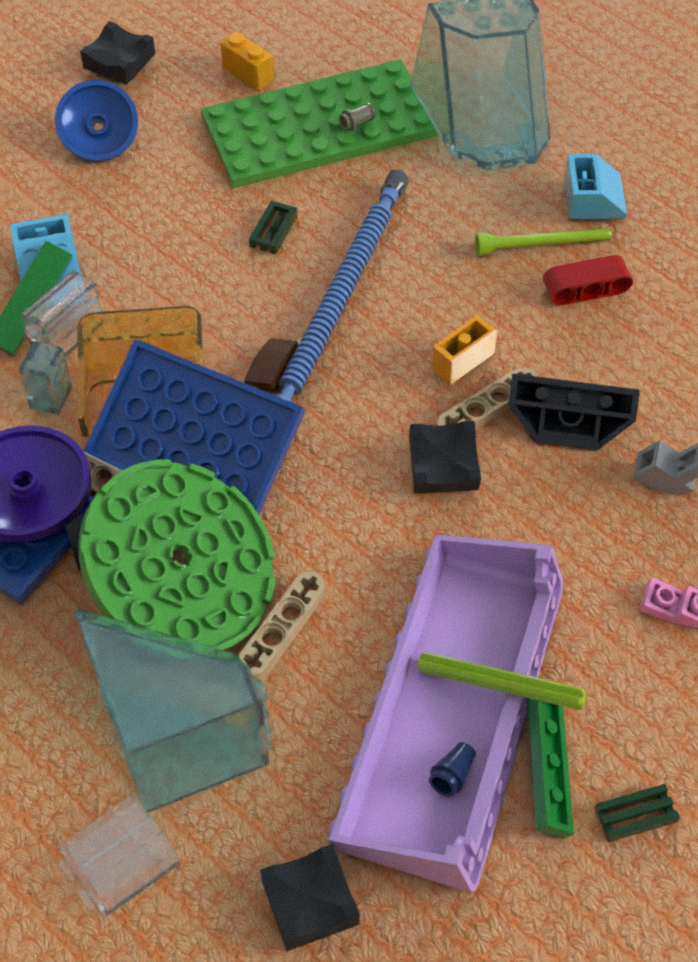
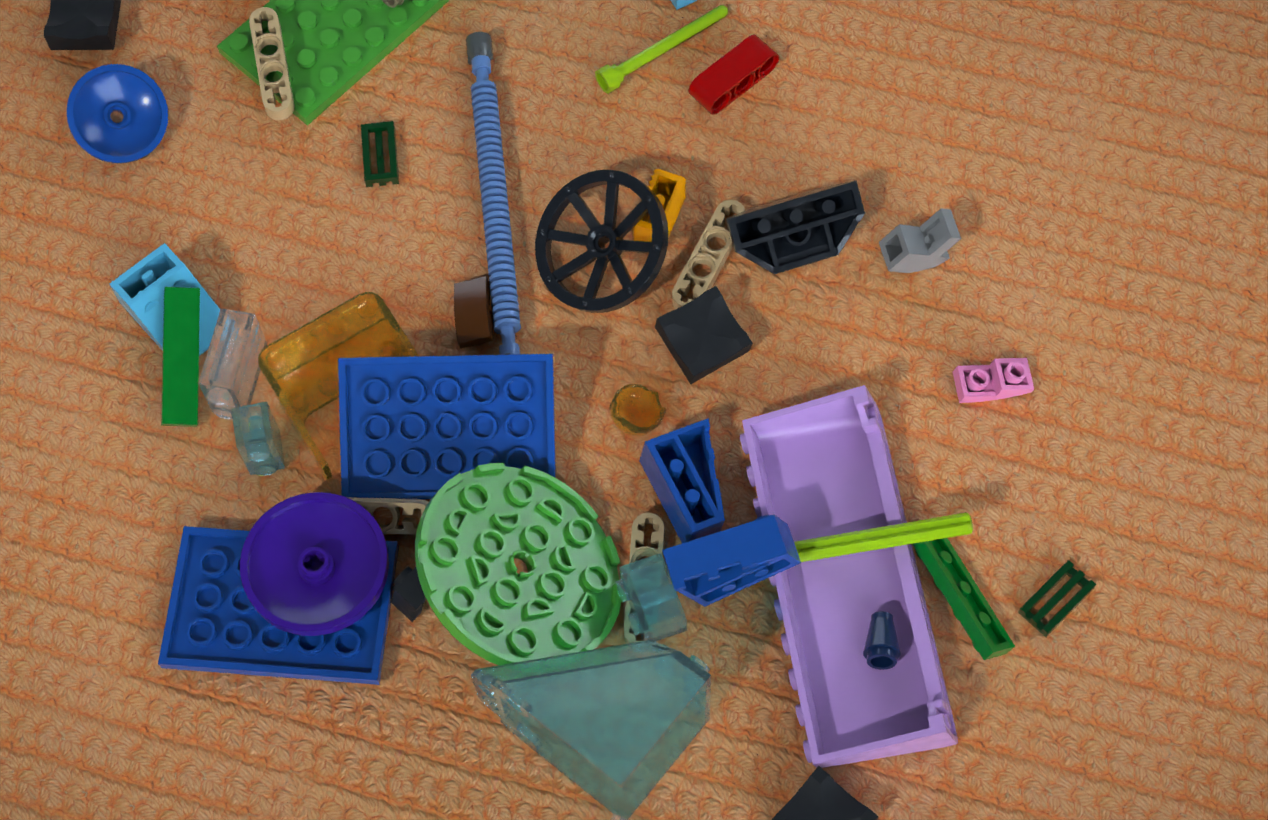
camera: 25 degrees left, 10 degrees up
(224, 130) = (270, 63): none -> tan beam
(273, 637) = (652, 599): none -> clear light blue brick
(354, 490) = (636, 410): none -> clear yellow hair
(356, 635) = (731, 559): none -> blue wedge
(361, 557) = (685, 480): none -> blue wedge
(404, 353) = (598, 237): none -> black wheel

